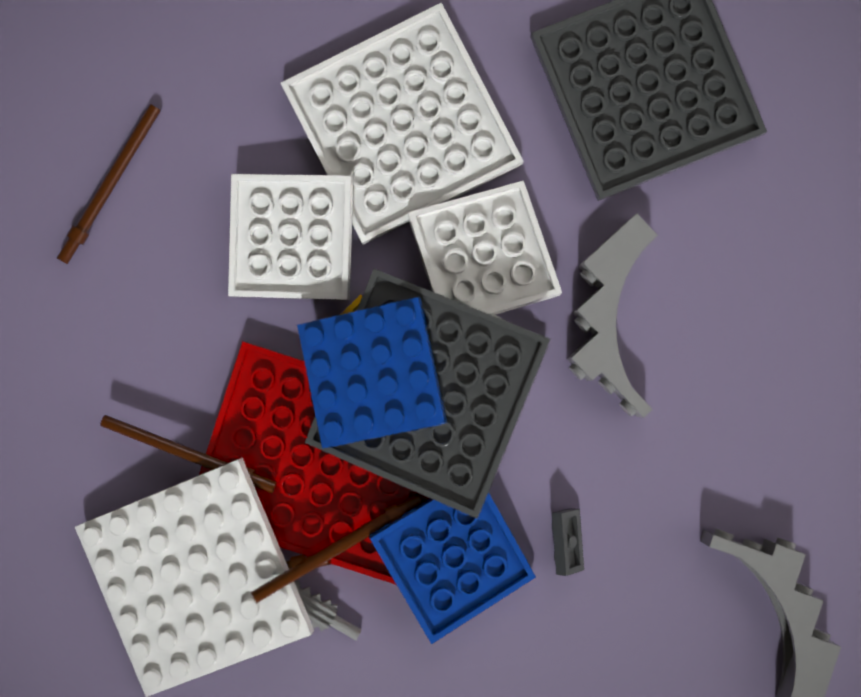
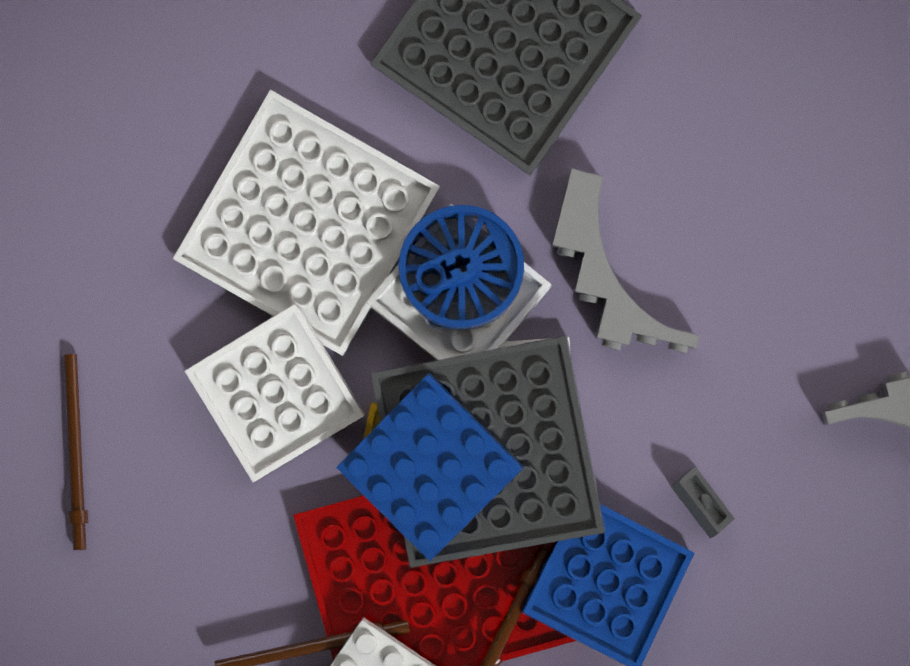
camera: 25 degrees left, 0 degrees up
(515, 235) = (506, 248): none -> blue piece

